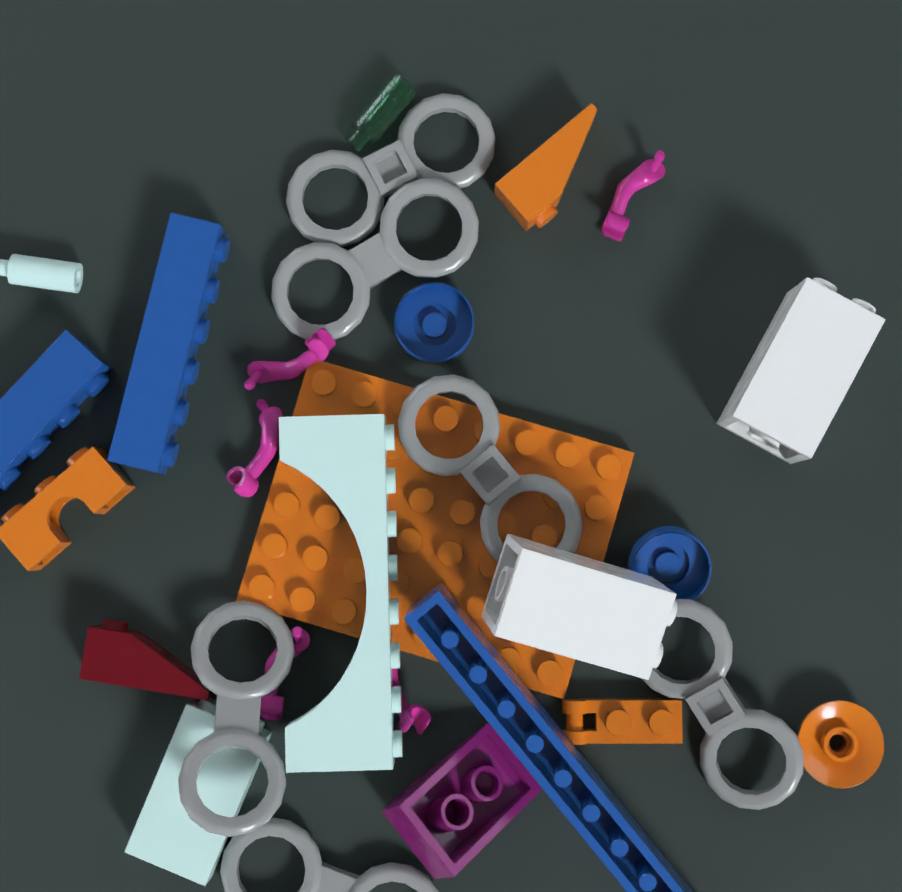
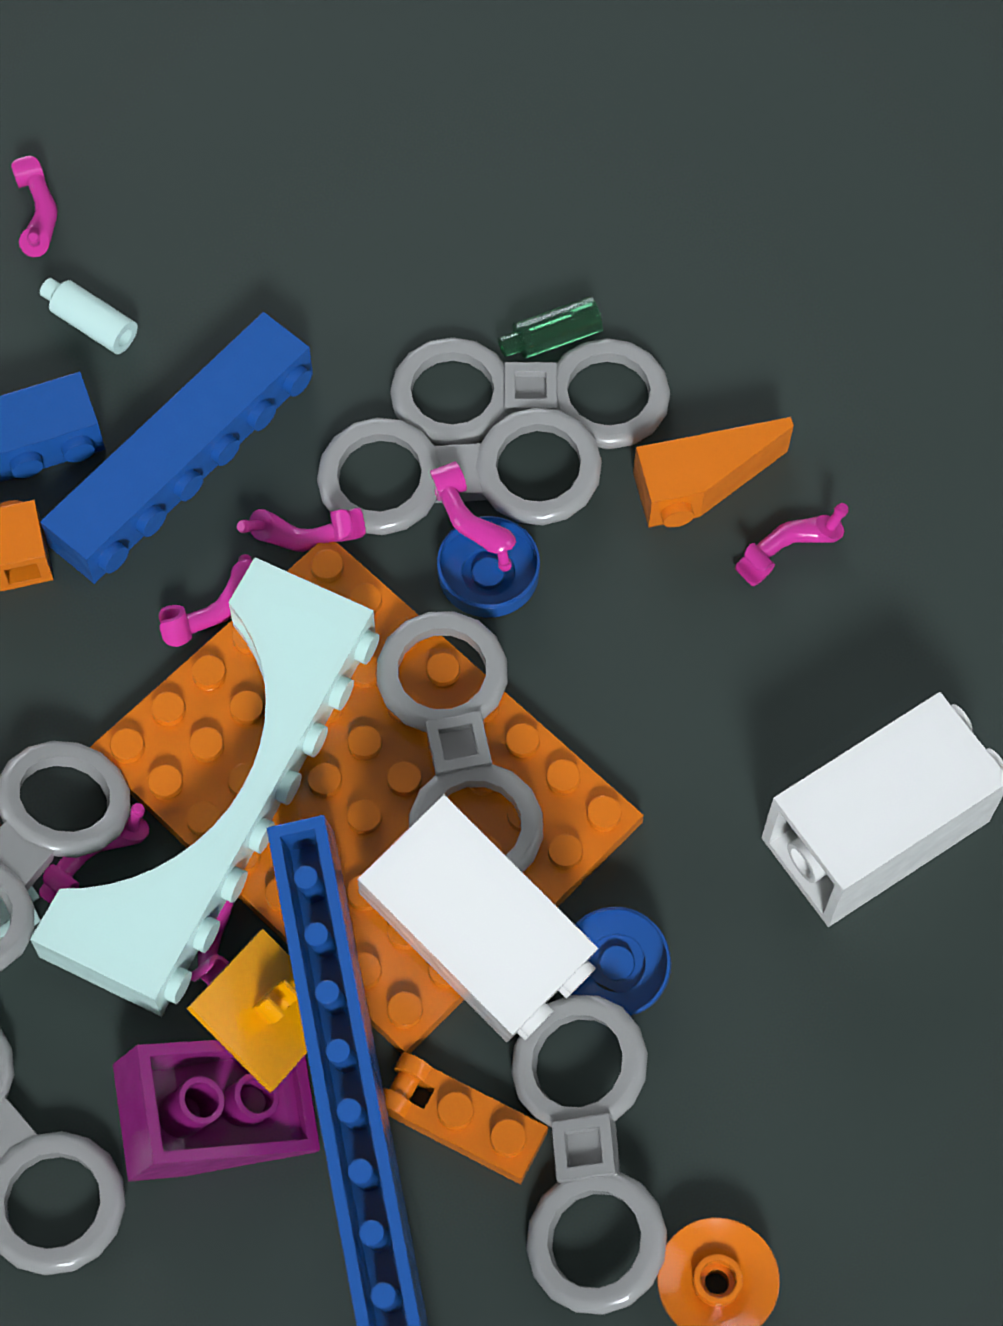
camera: 25 degrees right, 20 degrees down
(425, 306) = (494, 538): none -> dark pink piece
(454, 729) = (256, 1011): none -> light orange piece

